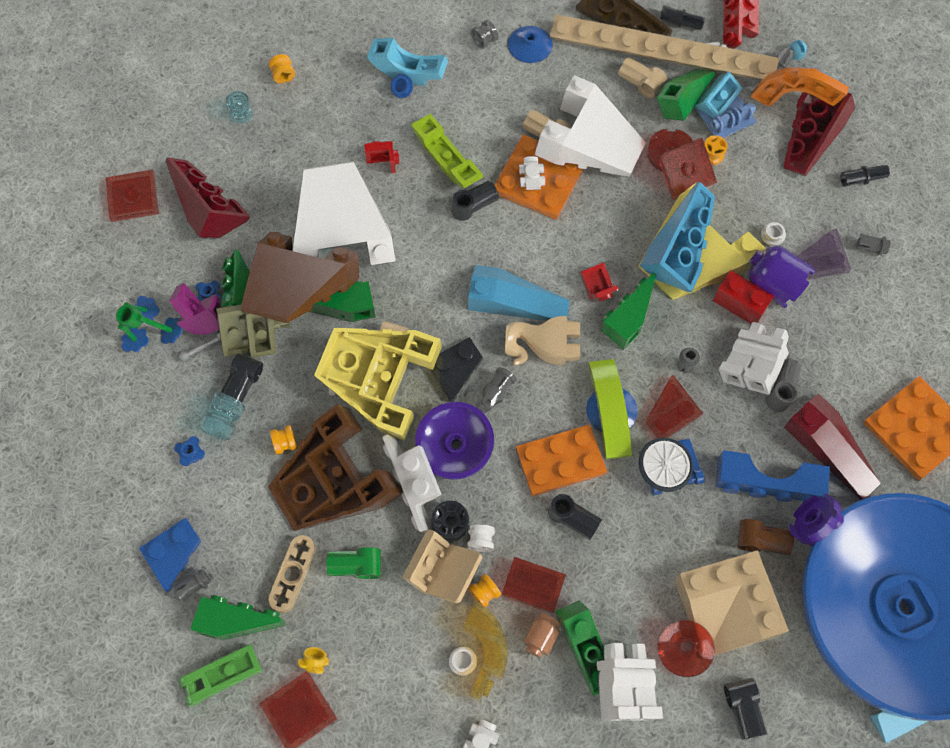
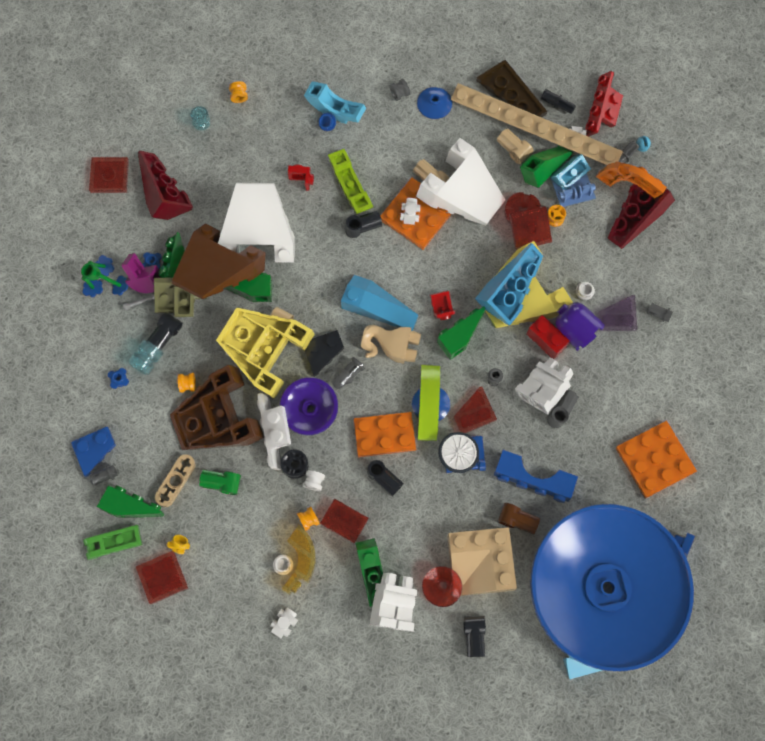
camera: 10 degrees right, 5 degrees up
(442, 568) = (280, 496): tan bracket -> none
(542, 635) = (342, 557): nougat brick -> none
(816, 519) = (557, 512): dark purple plate -> none
(830, 441) = (586, 455): dark red wedge -> none
(864, 175) = (668, 256): black axle -> none

